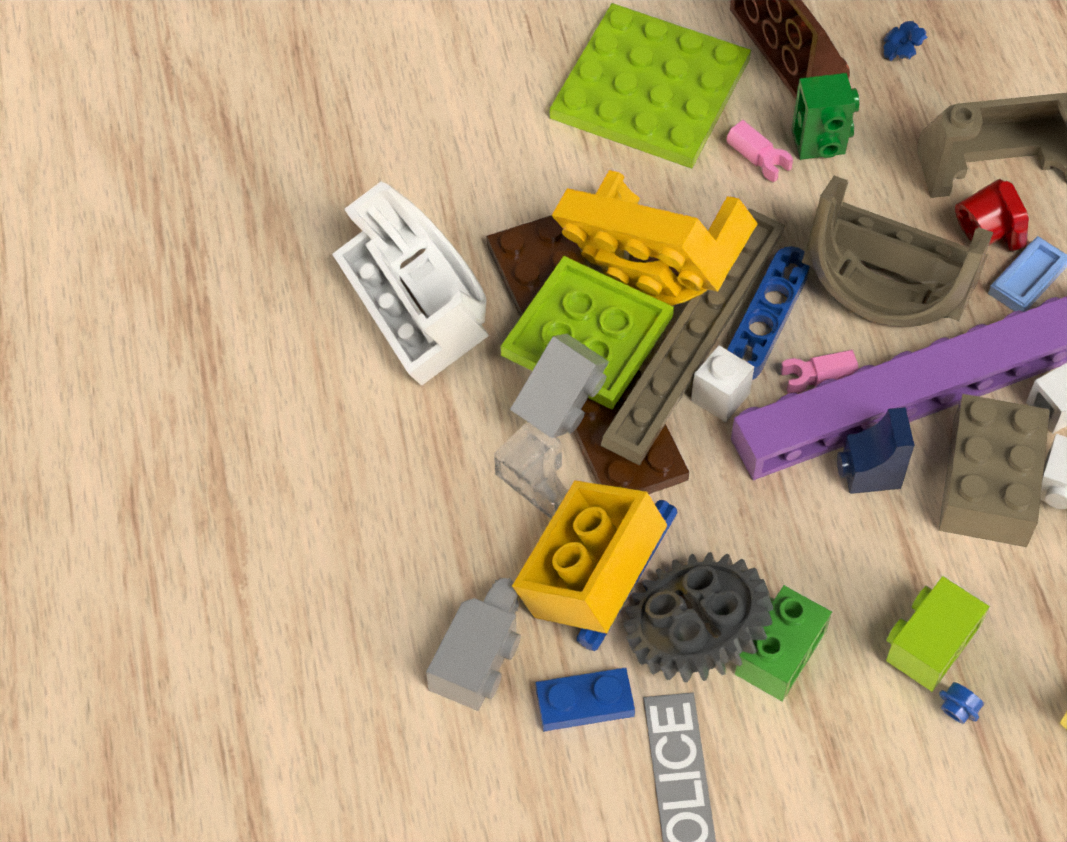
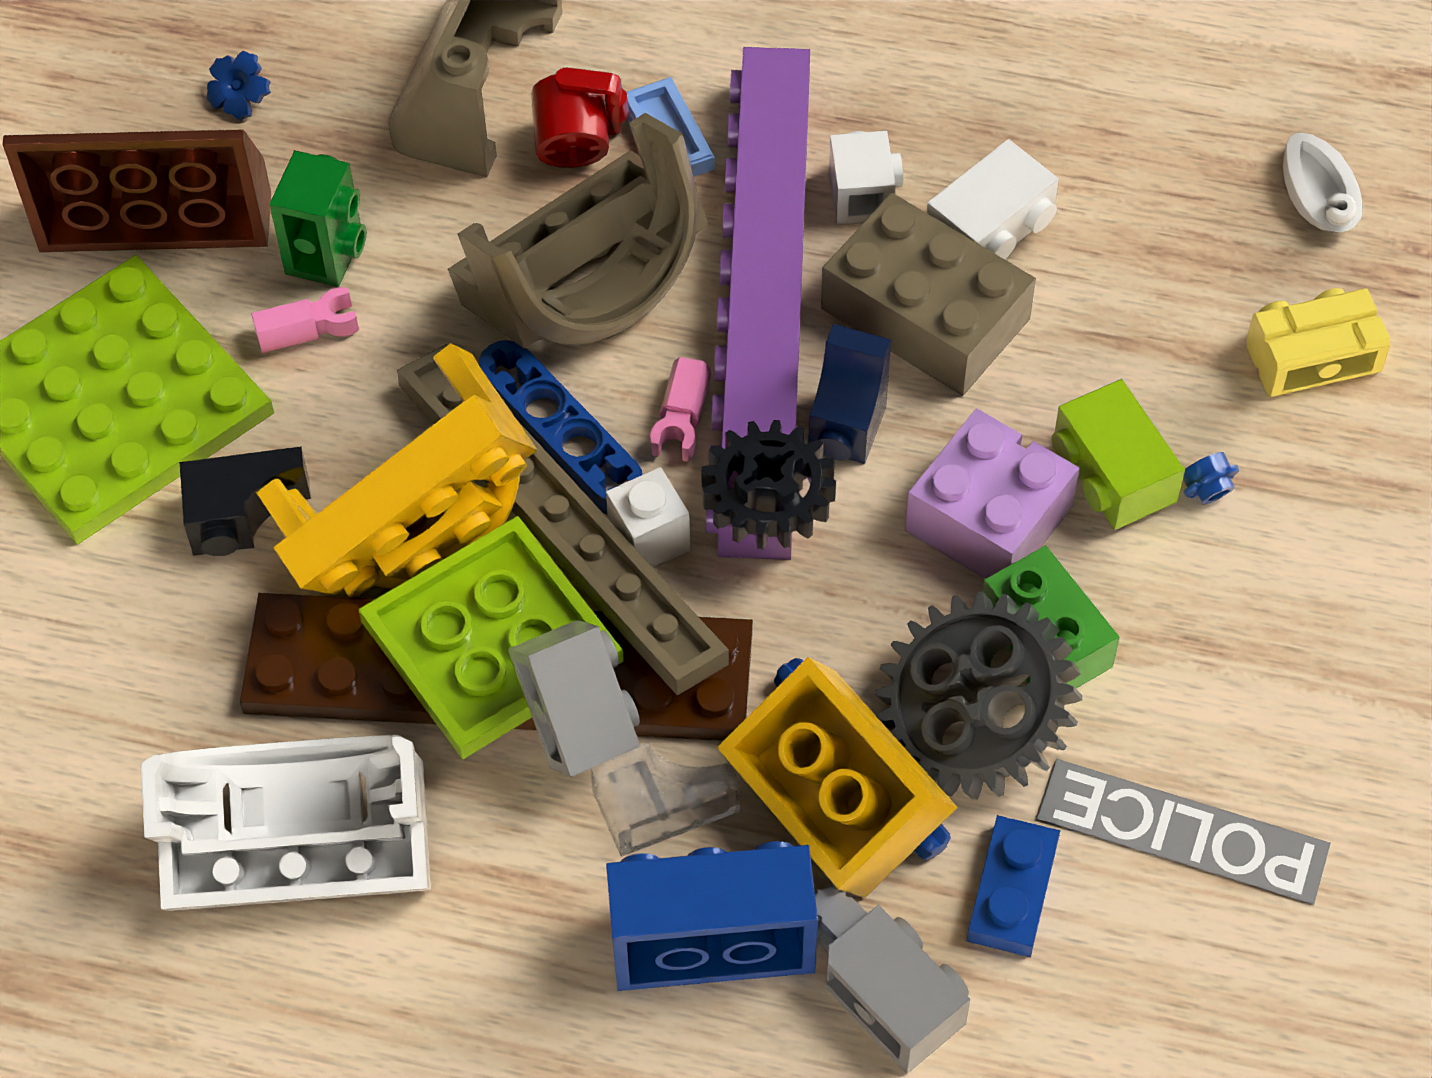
camera: 65 degrees left, 0 degrees up
(460, 522) = (712, 916): none -> blue brick
(614, 154) = (222, 498): none -> black arch
(777, 425) = (768, 484): none -> black gear
(858, 569) = (990, 496): none -> lavender piece

